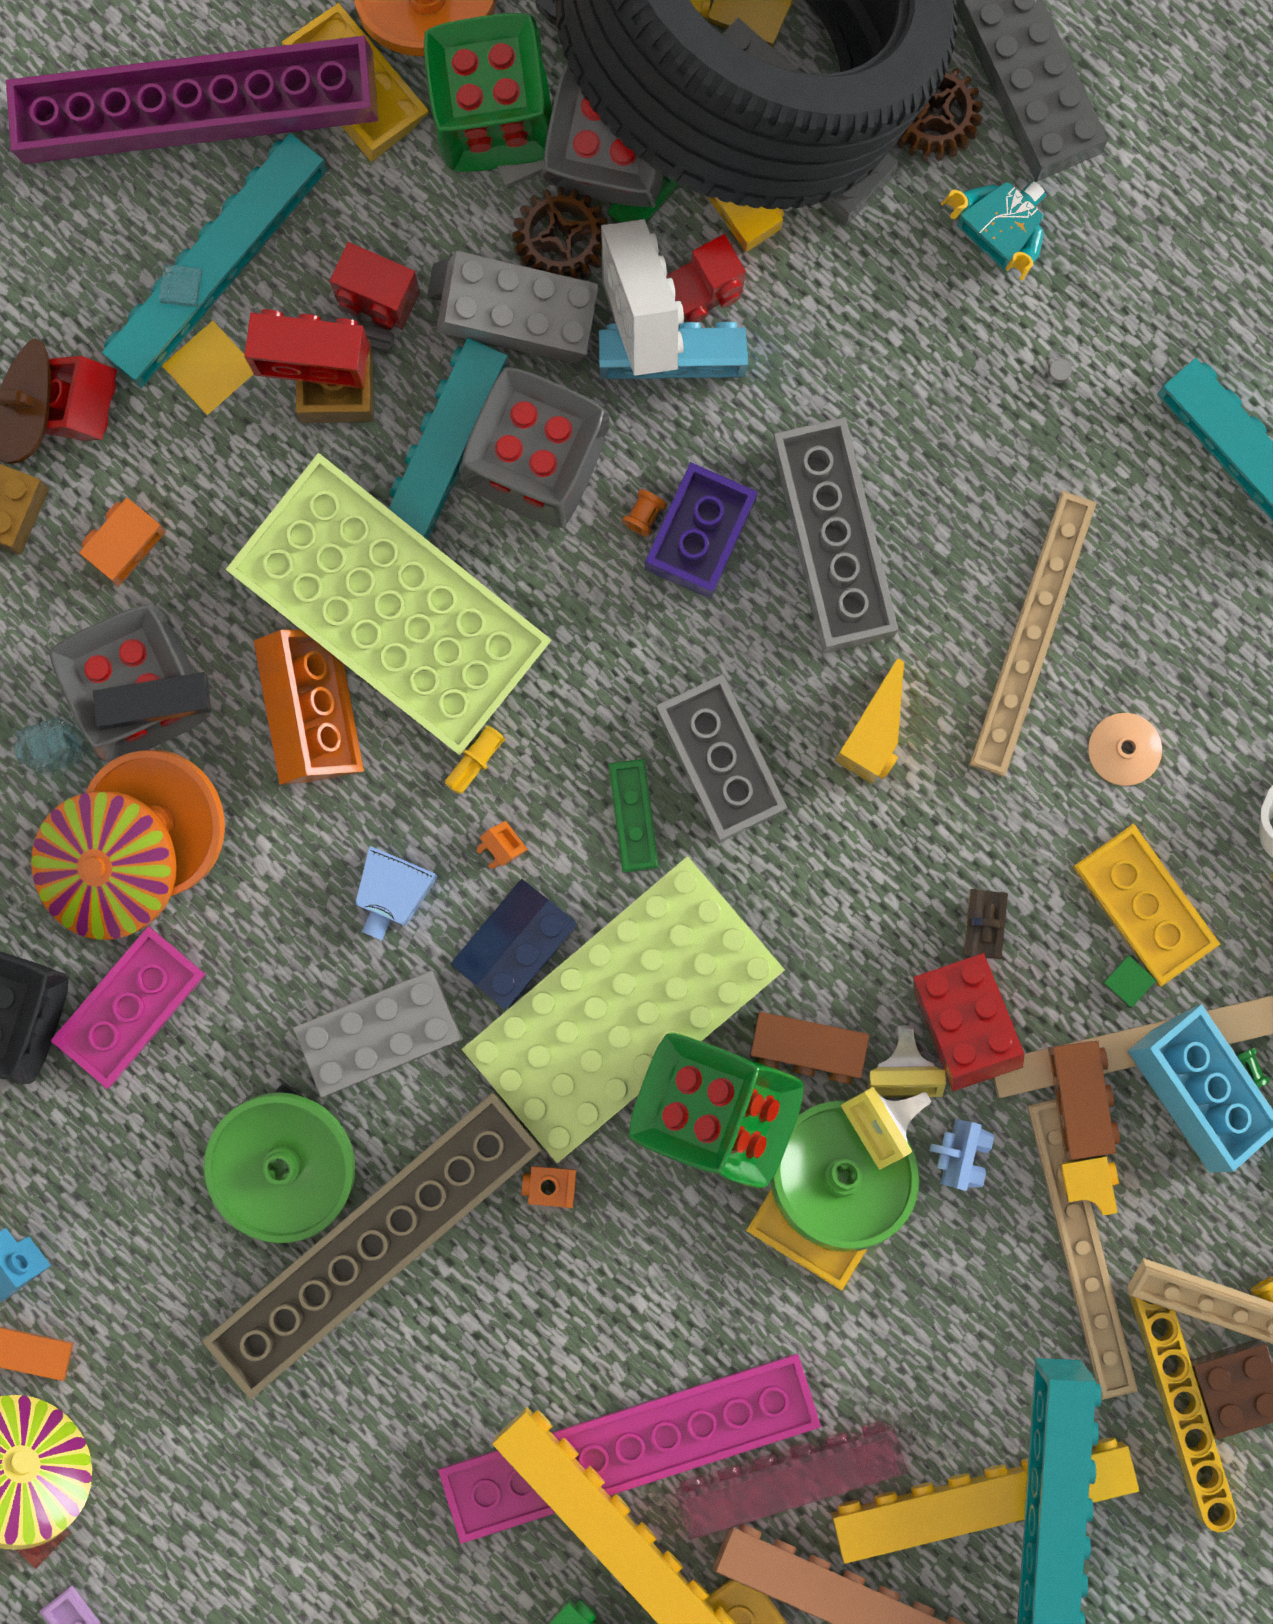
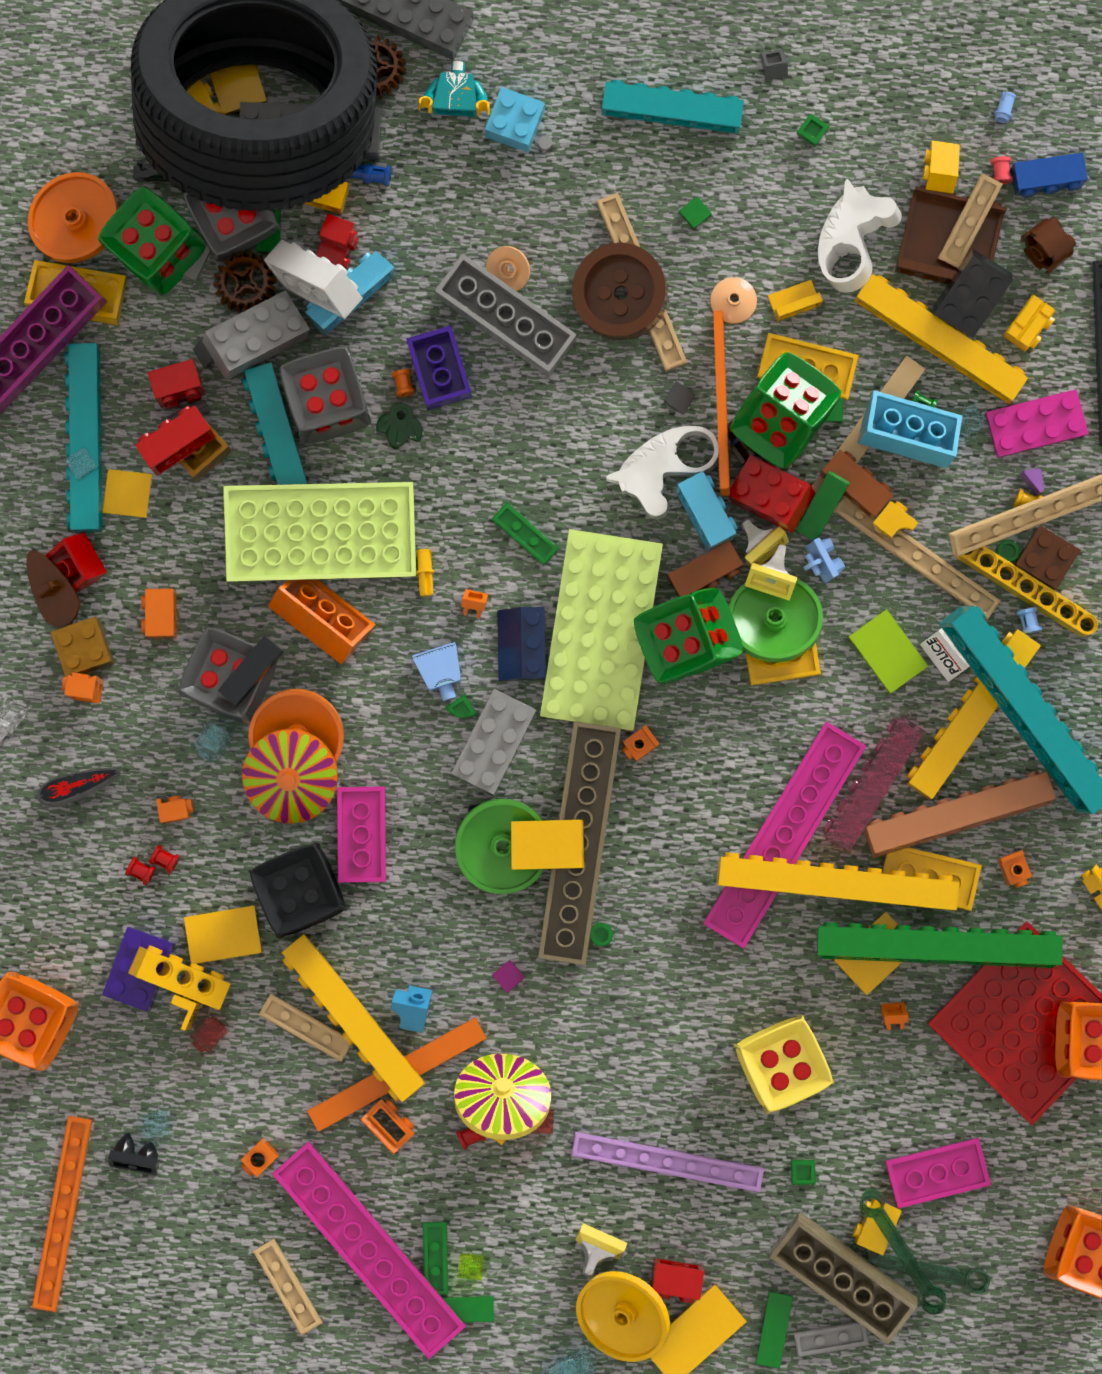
camera: 40 degrees left, 0 degrees up
(154, 1328) = (508, 976): none -> magenta tile
(307, 1375) = (601, 934): none -> green tile
(330, 1215) = (547, 844): none -> yellow tile
(377, 958) = (461, 708): none -> green tile
(592, 564) = (399, 429): none -> dark green plate
(721, 758) = (544, 469): light grey brick -> none
(821, 232) = (371, 173): none -> blue pin
(854, 860) = (653, 461): none -> white animal
(872, 976) = (706, 510): none -> medium azure brick
(875, 736) = (609, 395): yellow slope -> none
(876, 471) = (498, 264): none -> light nougat dish
(947, 1334) = (888, 651): none -> lime tile
(958, 811) = (679, 398): none -> dark grey slope
(1001, 862) = (721, 403): none -> orange tile
(1002, 585) = (617, 267): none -> reddish brown brick
(1011, 1398) = (944, 655): none -> white panel
(1018, 1090) = (822, 506): none -> green tile
(1047, 312) = (514, 119): none -> medium azure brick
(1072, 937) = (785, 410): none -> green piece
(1151, 1446) = (1029, 620): none -> light blue bush
(1169, 605) = (695, 213): none -> green tile
(1199, 812) = (795, 300): none -> yellow panel
(1199, 1337) = (1008, 550): none -> green tile

